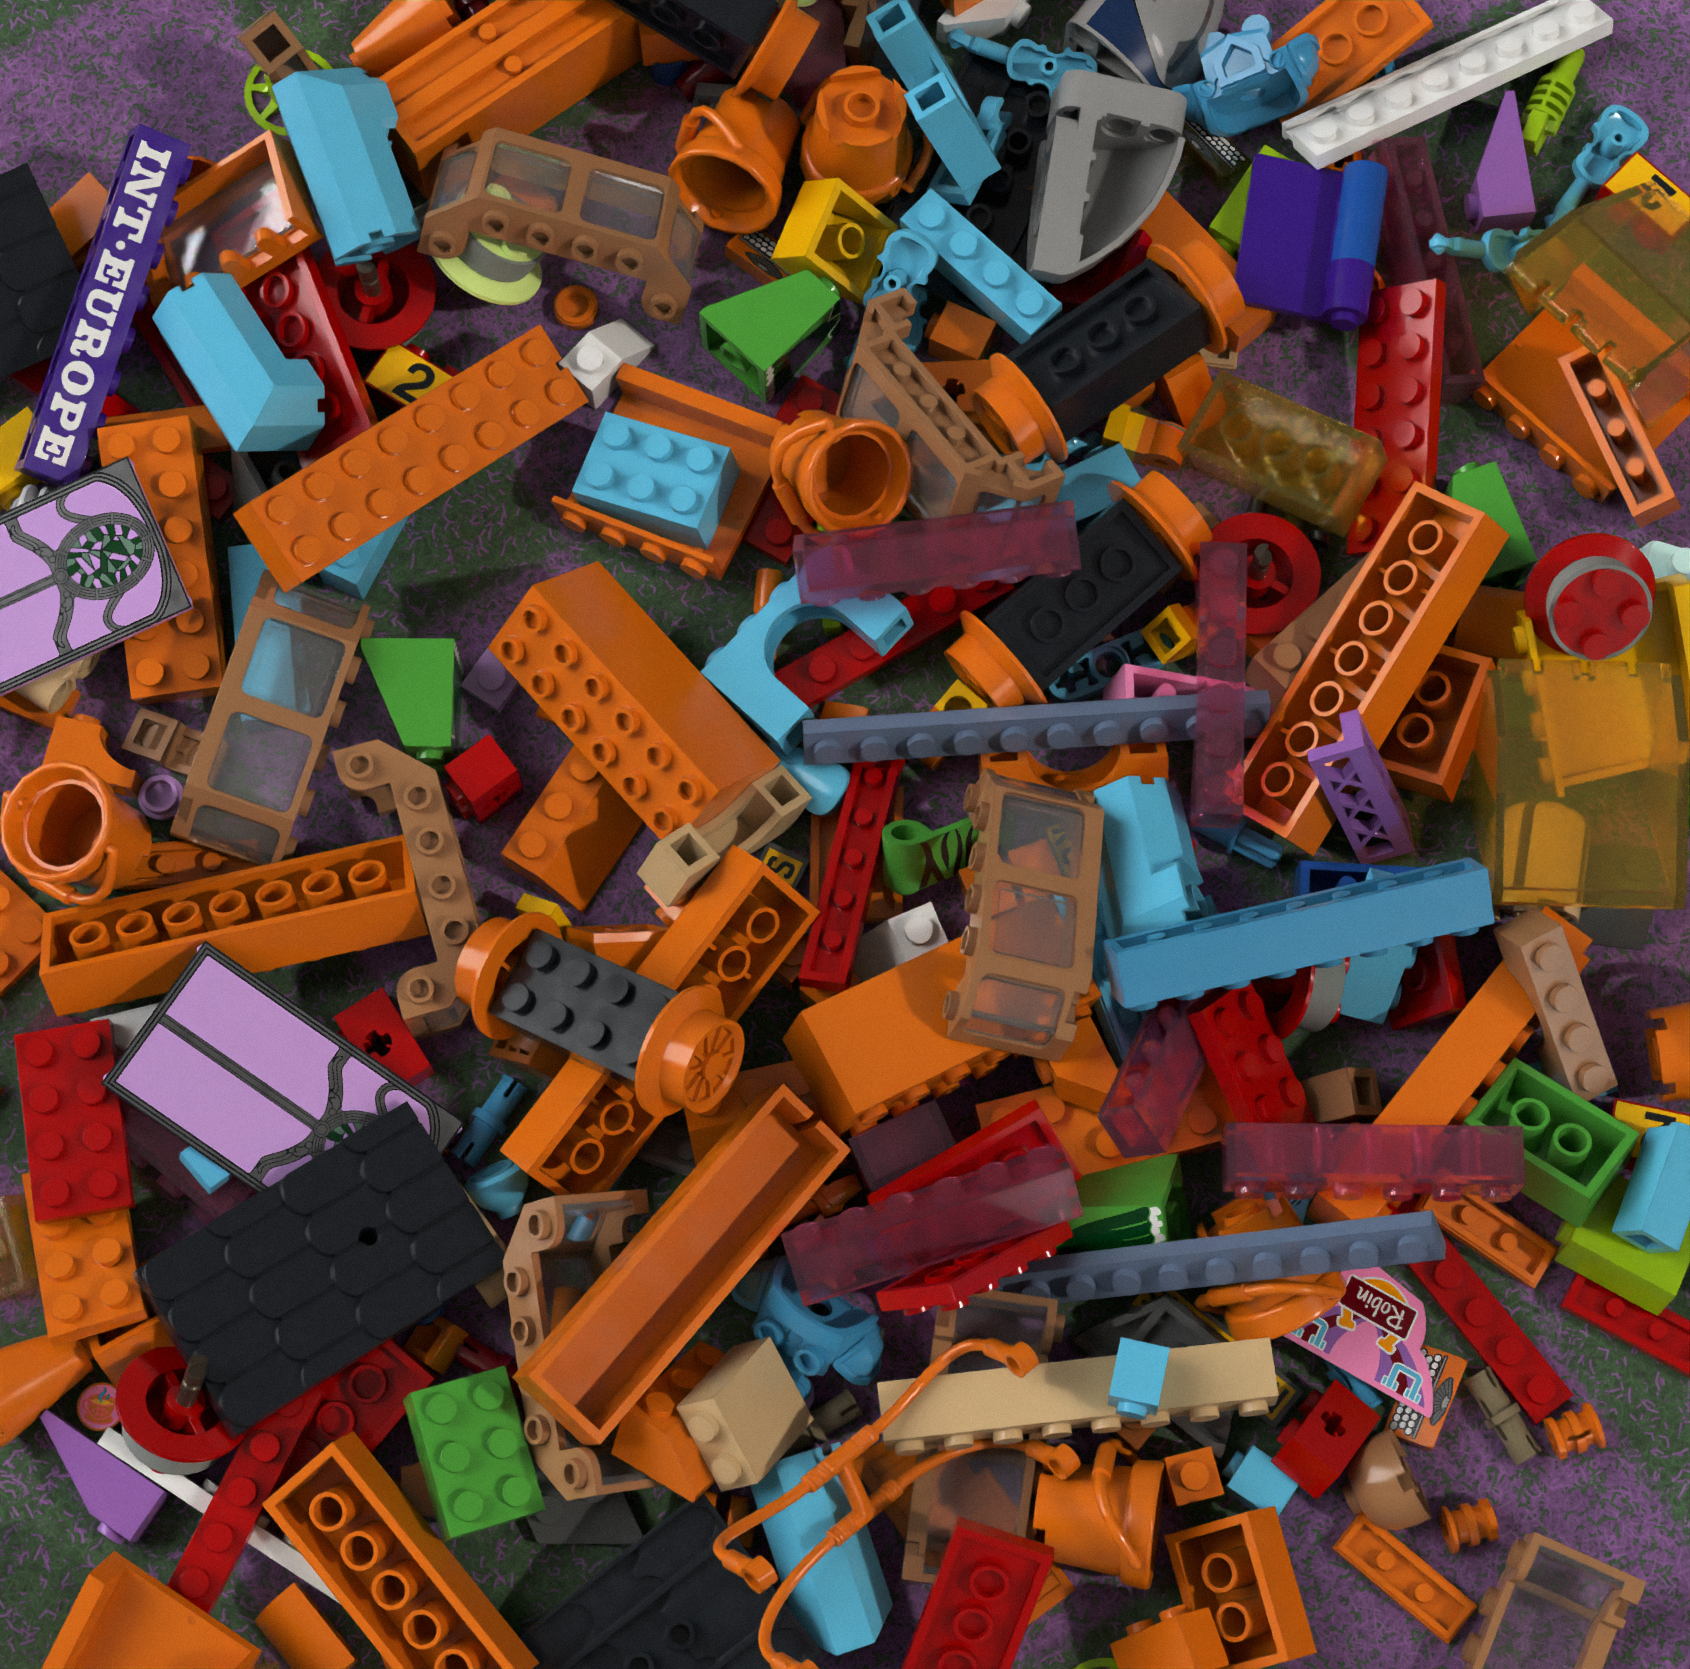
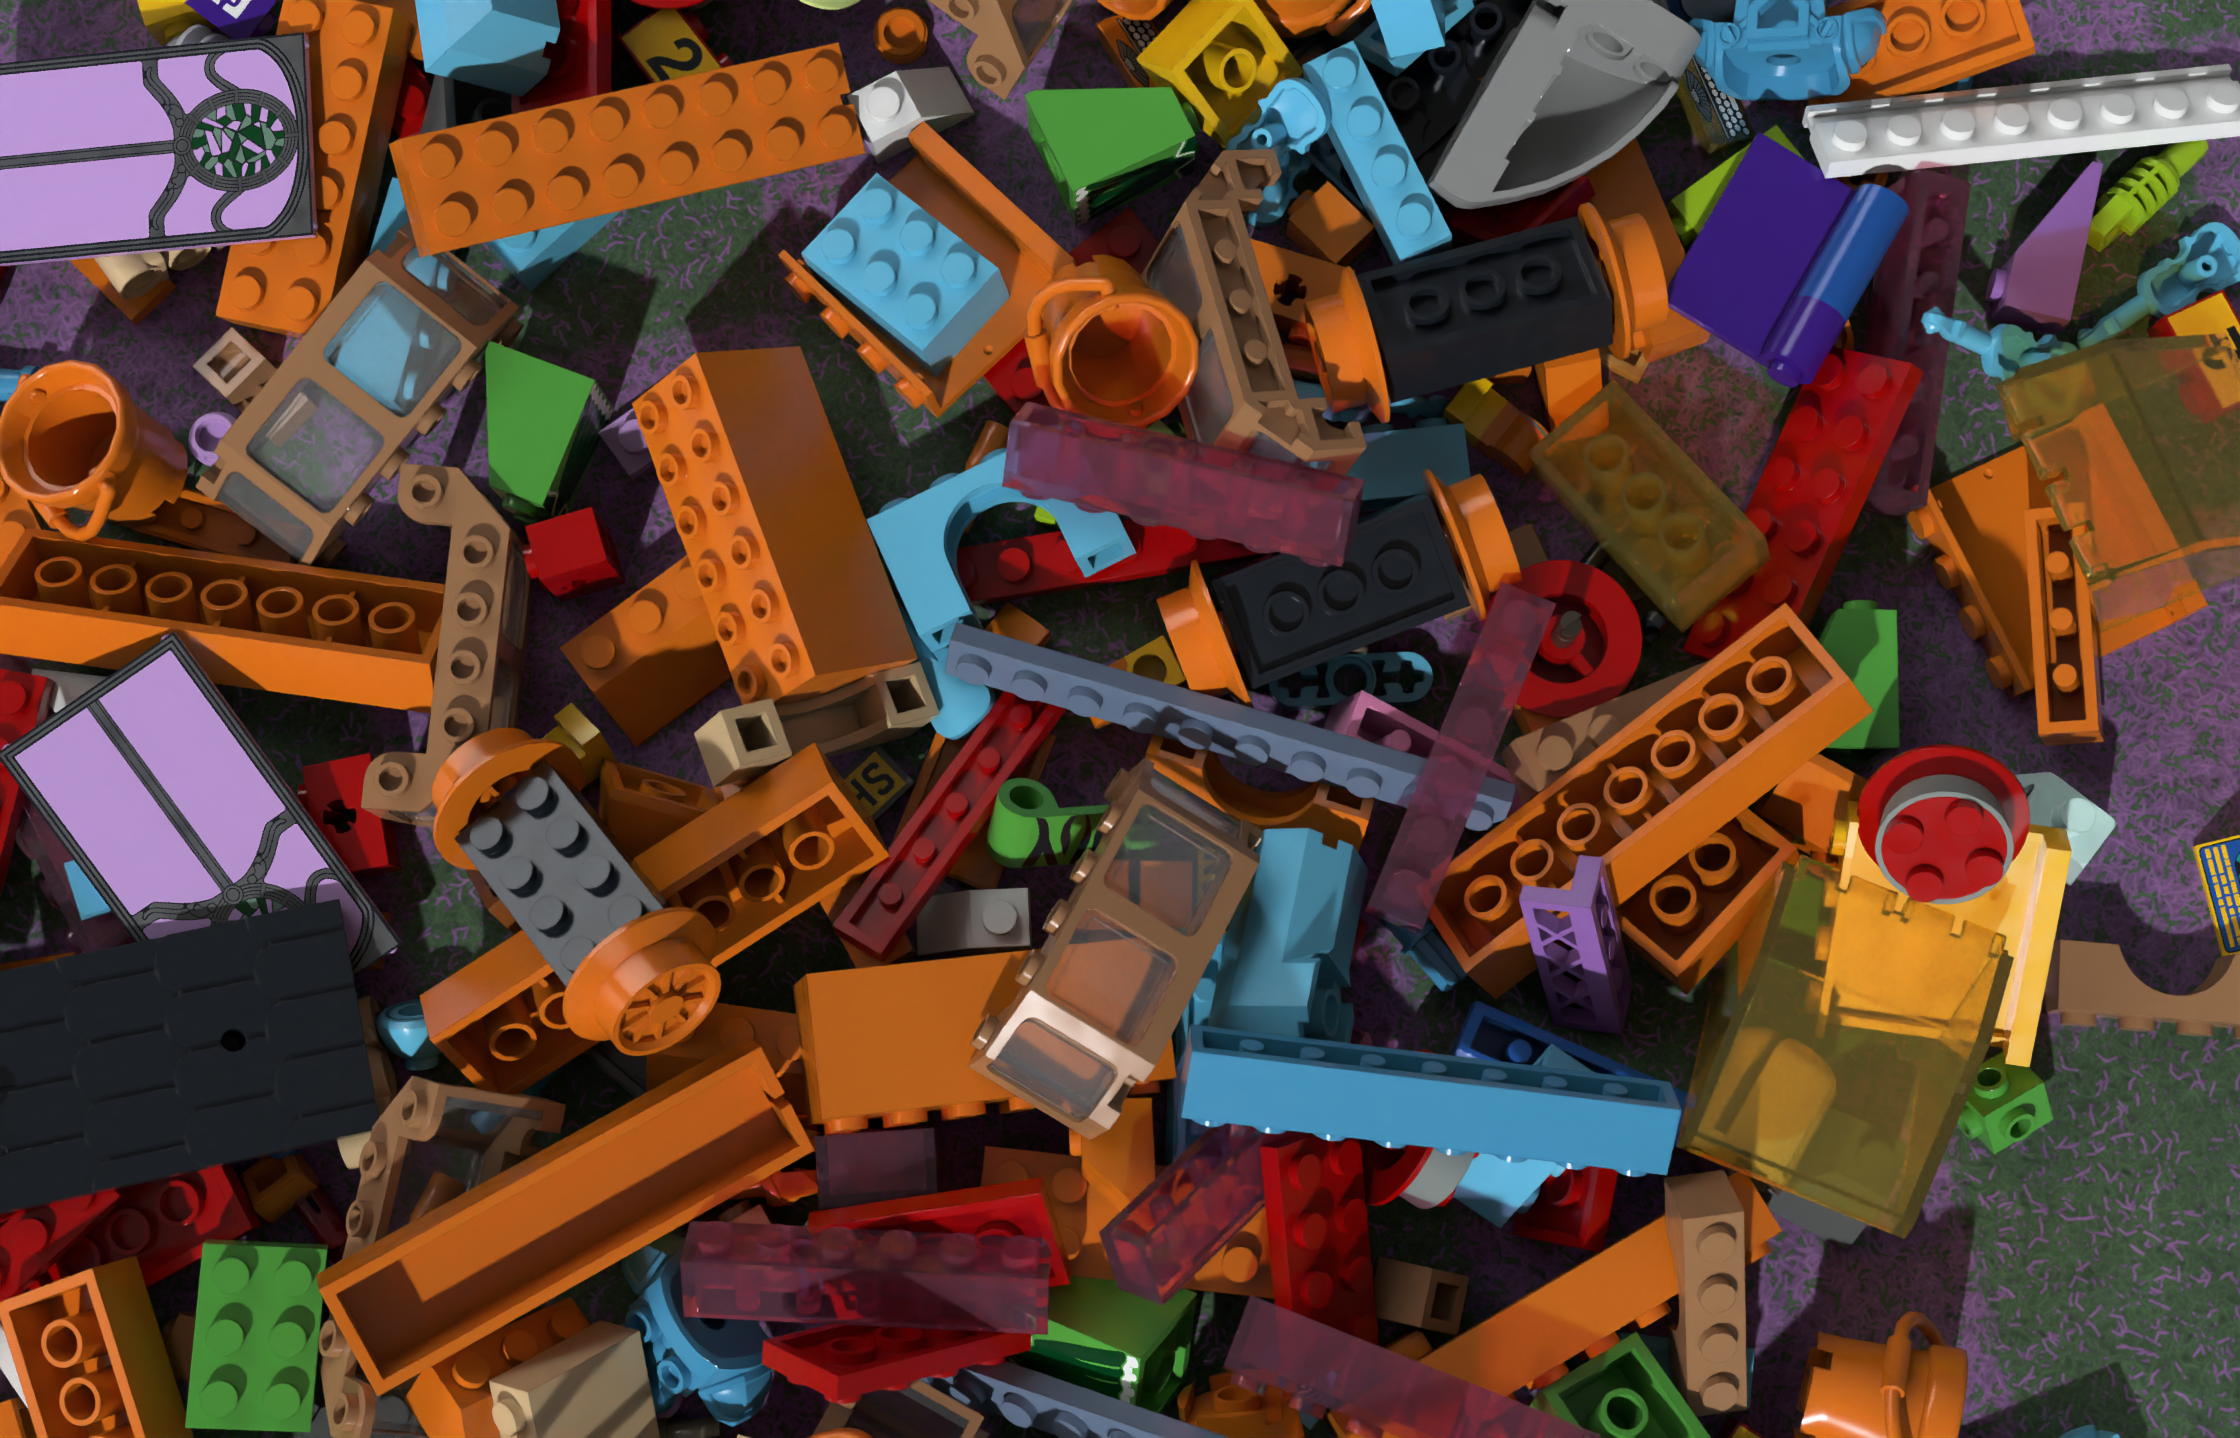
camera: 25 degrees right, 5 degrees up
(86, 743) = (149, 359): orange arch -> none
(489, 1121) = (436, 949): dark azure pin -> none
(1179, 626) = (1447, 666): yellow leg -> none

